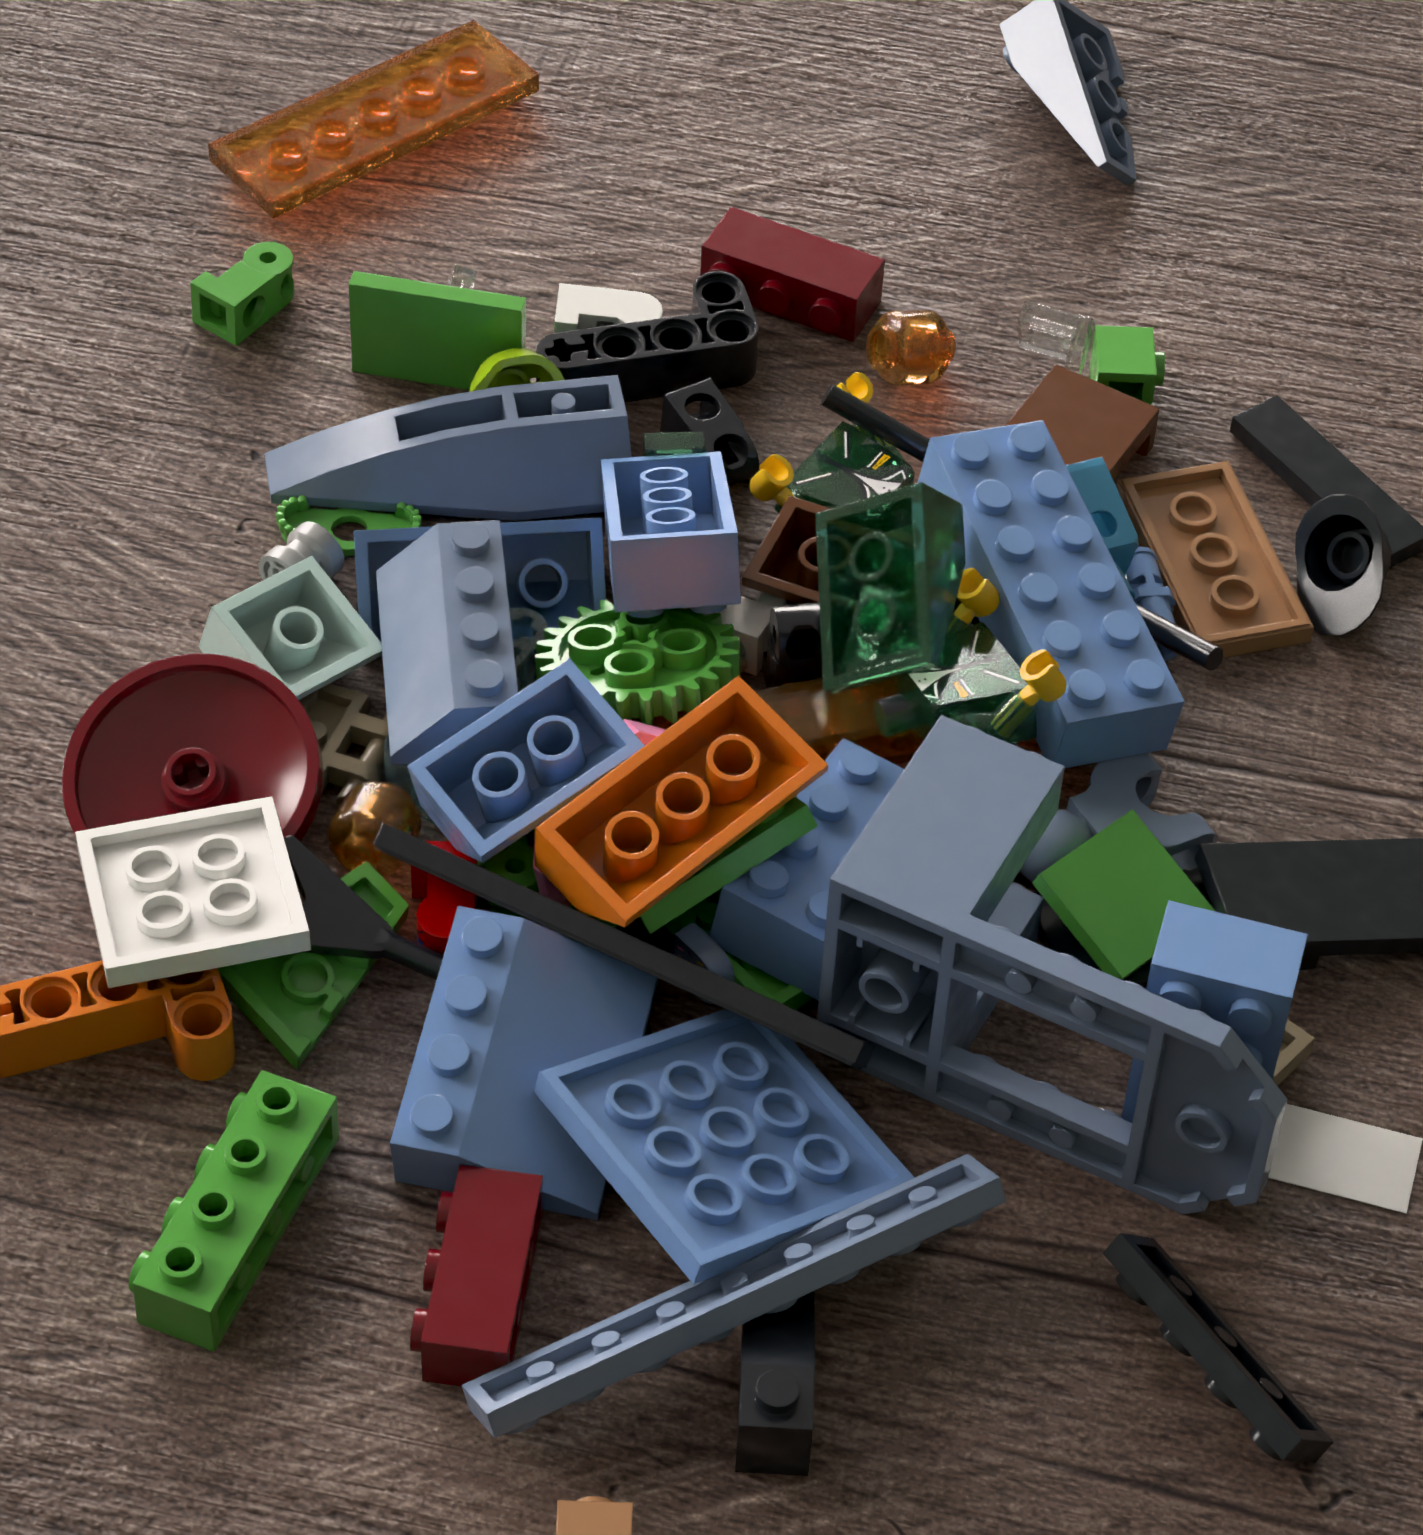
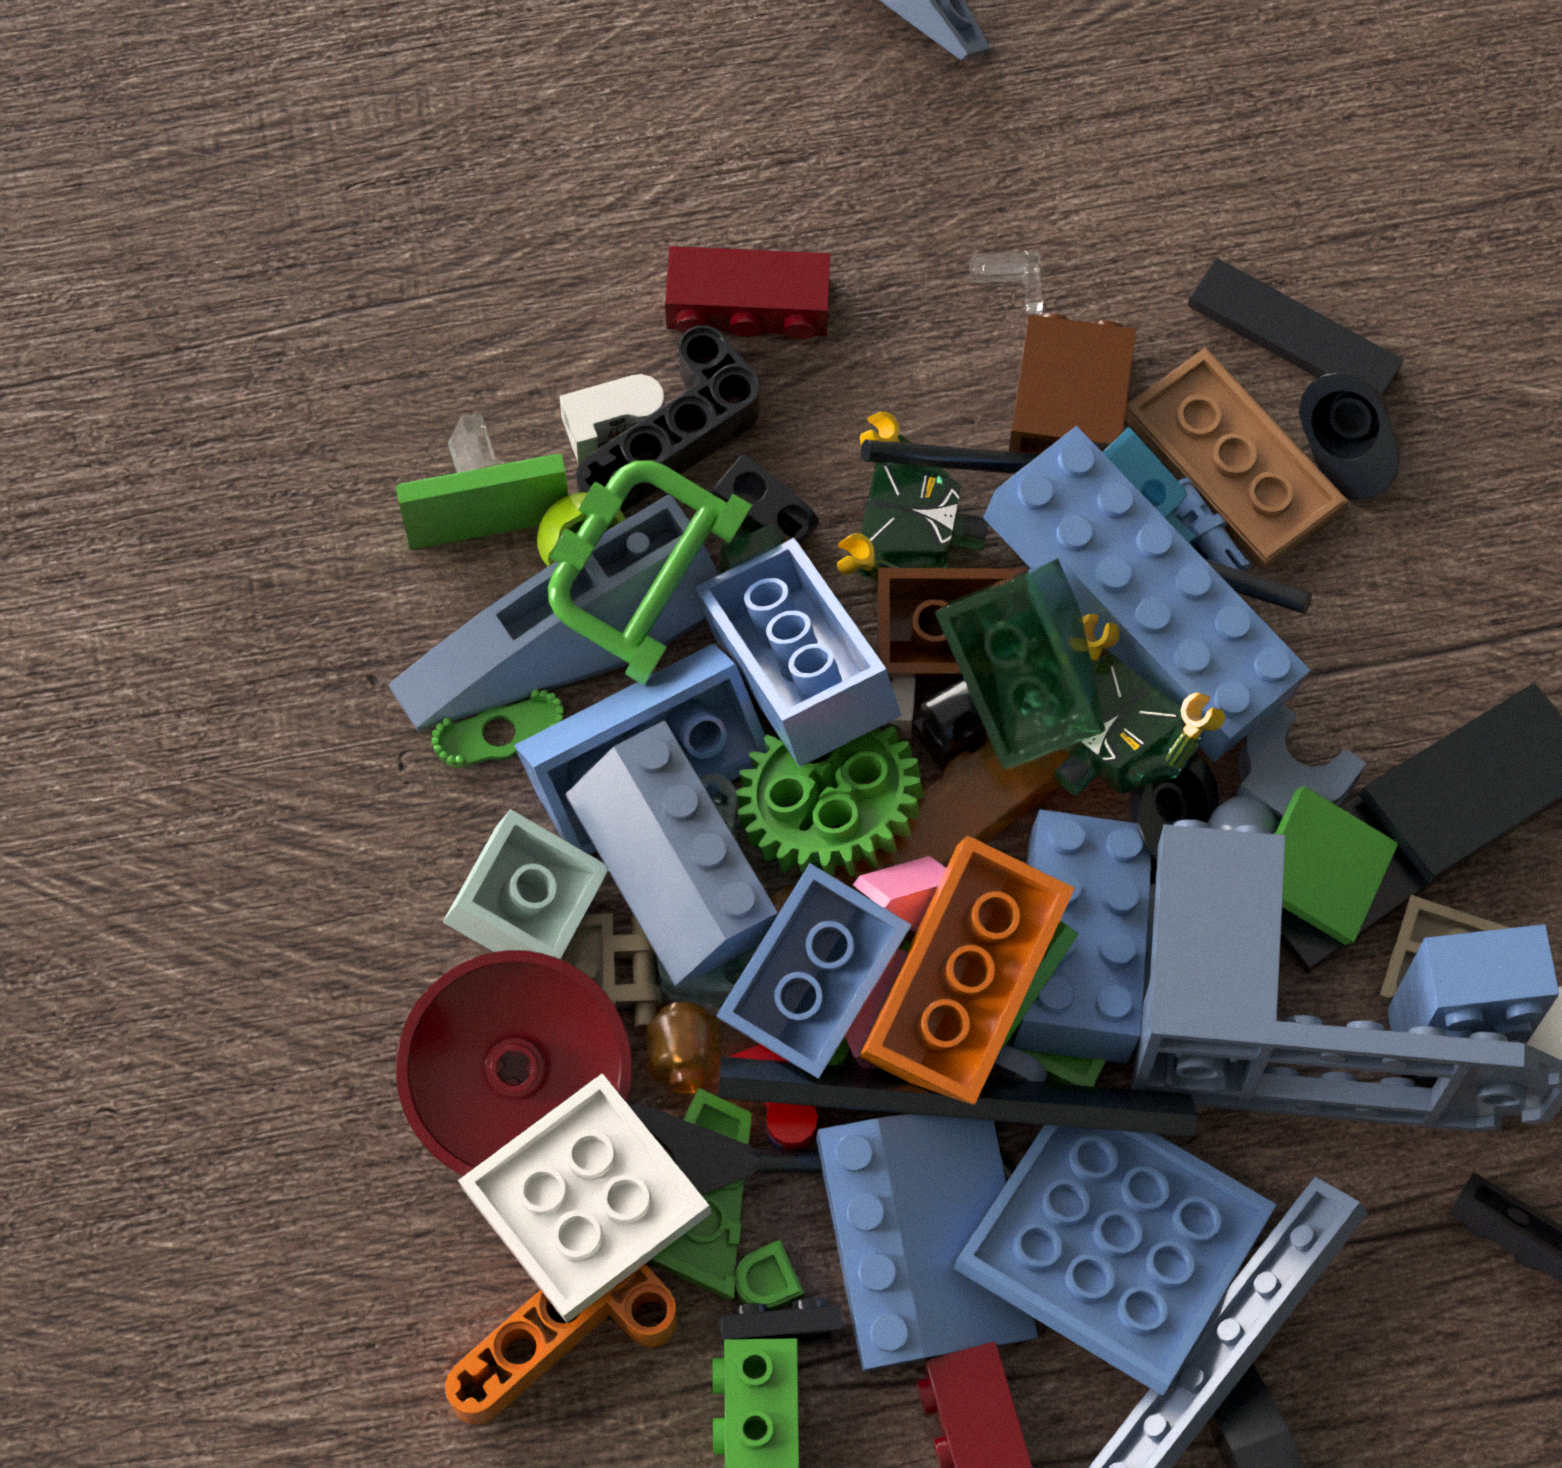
camera: 20 degrees left, 20 degrees up
(245, 293) = (282, 510): bright green leg -> none
(304, 541) = (483, 794): light grey wheel -> none
(343, 1060) = (767, 1278): none -> bright green tile
(364, 1100) = (808, 1322): none -> black plate
(373, 118) = (289, 255): clear orange plate -> none
(541, 352) = (601, 507): none -> bright green bar
(910, 346) = (888, 334): clear orange head -> none
(1127, 360) = (1080, 282): bright green brick -> none

